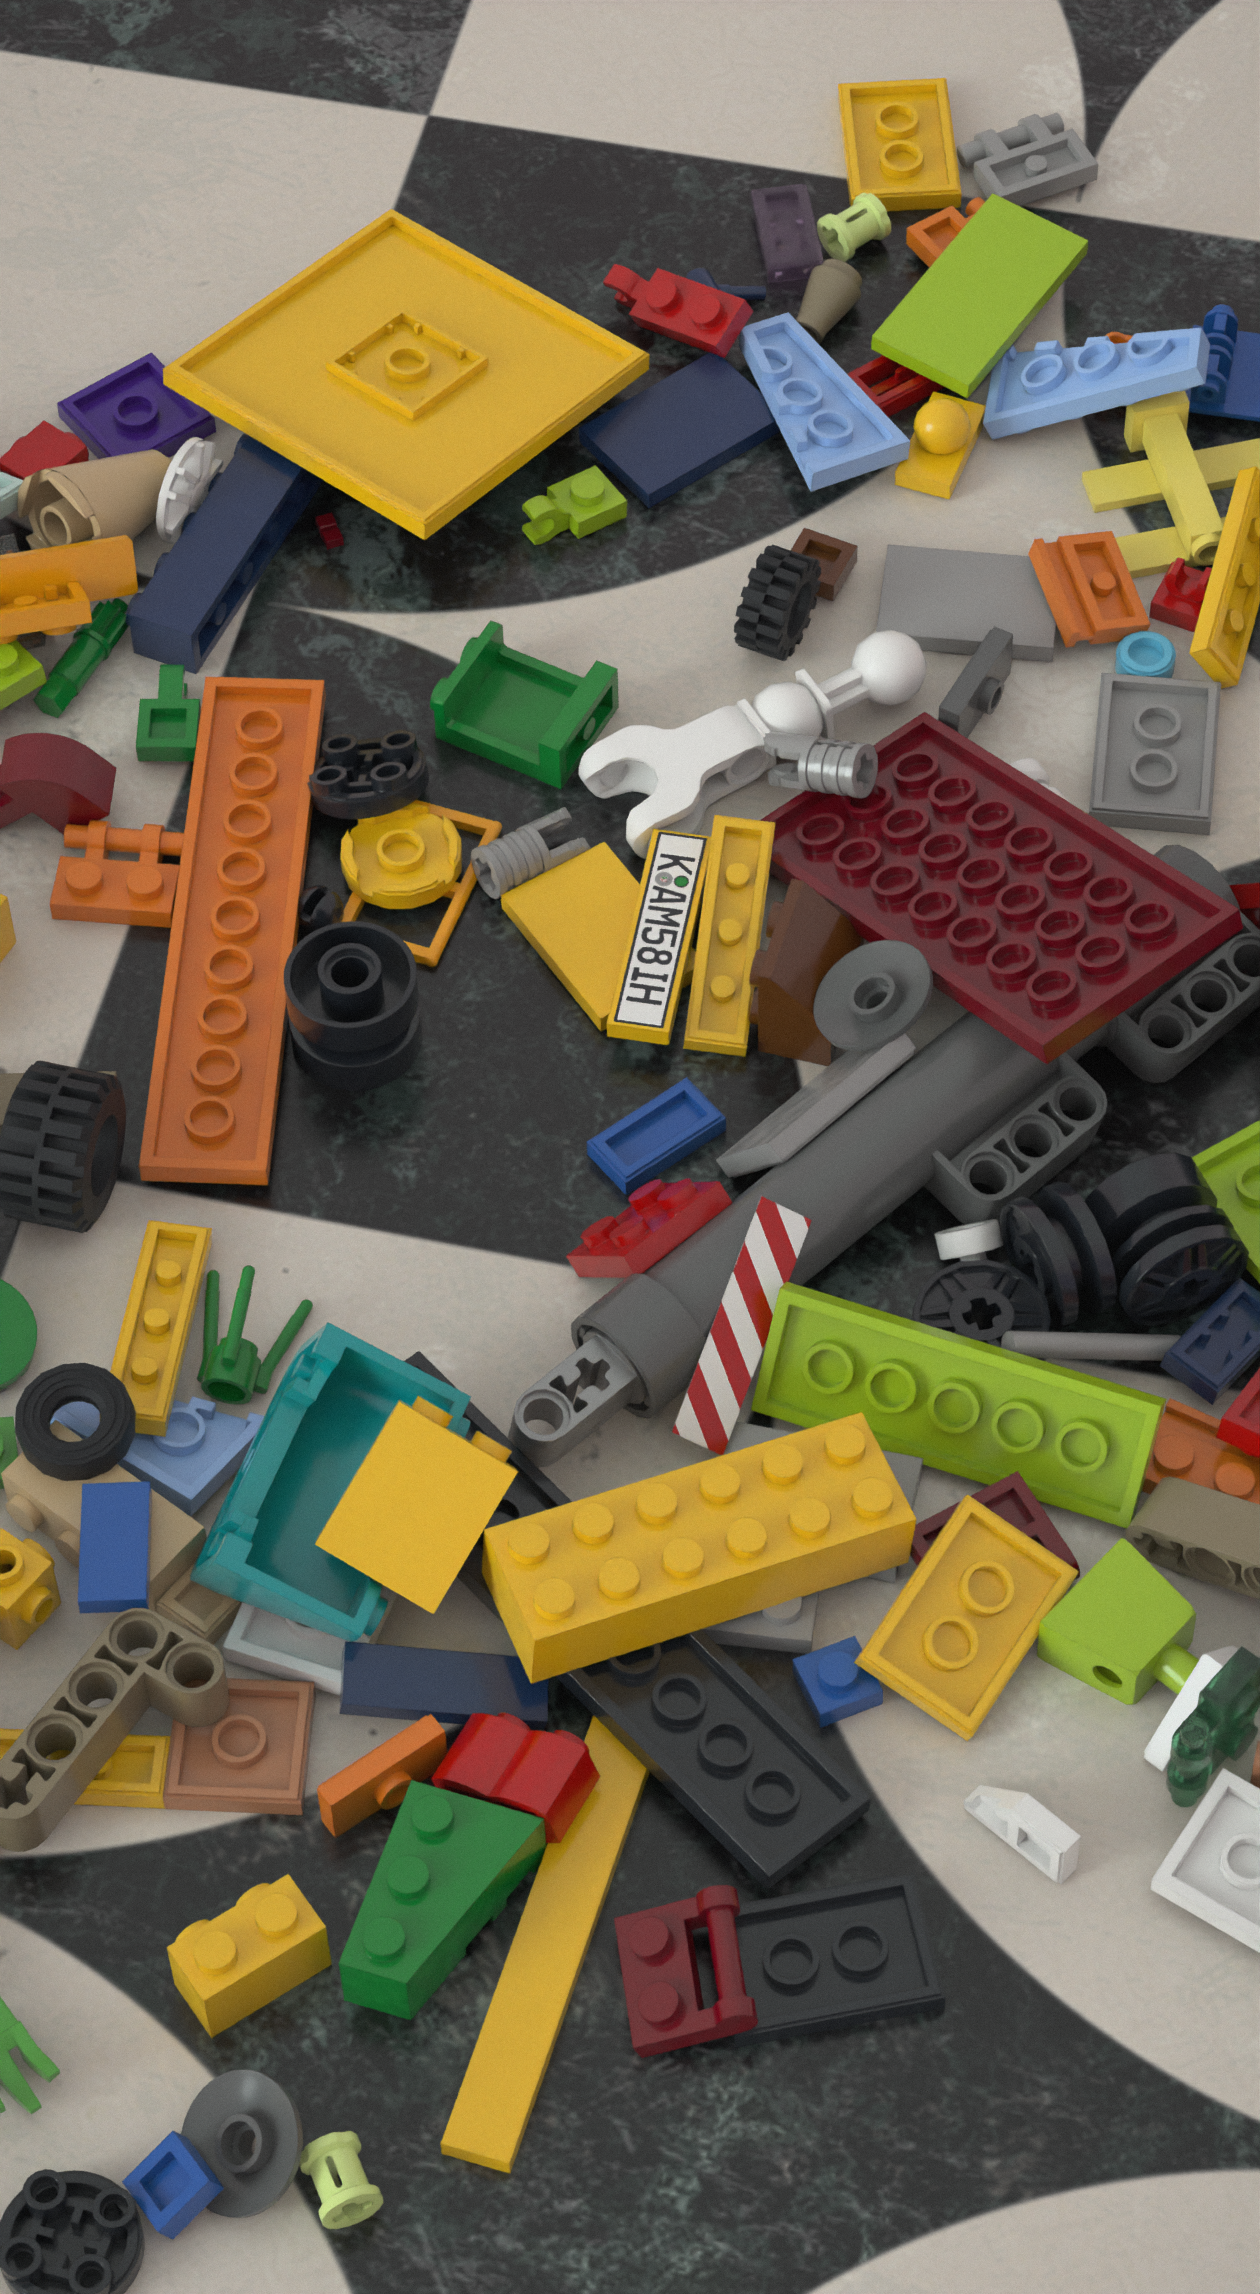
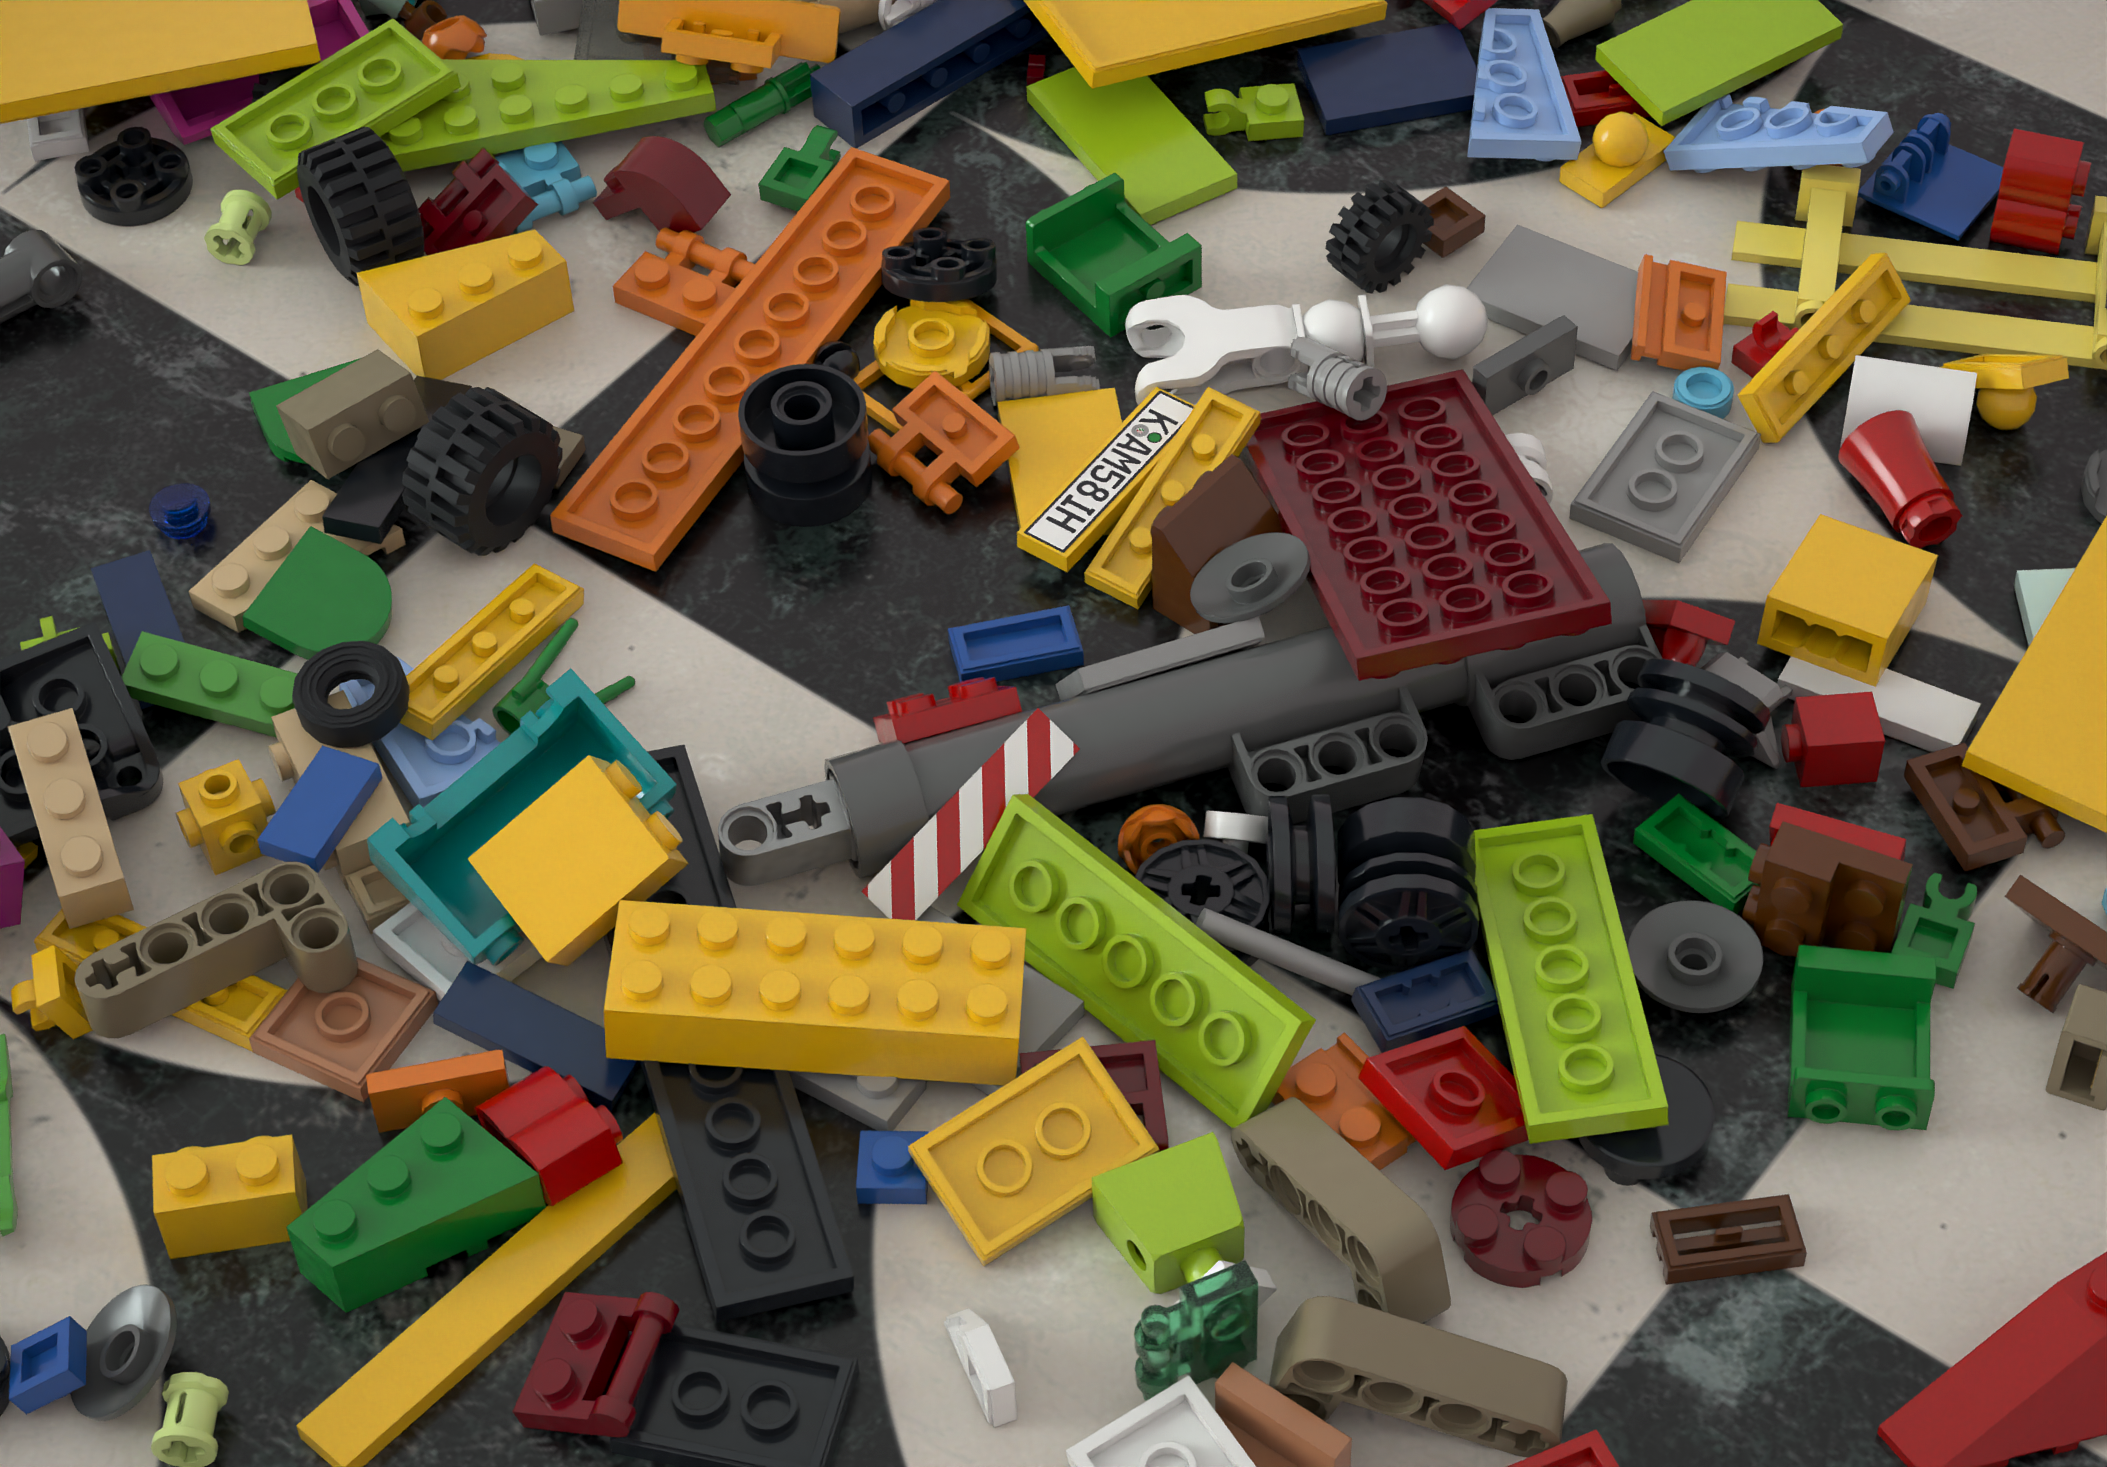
camera: 25 degrees right, 5 degrees down
(471, 577) = (1139, 136): none -> lime tile
(484, 940) = (955, 430): none -> orange plate
(899, 1275) = (1148, 824): none -> orange plate

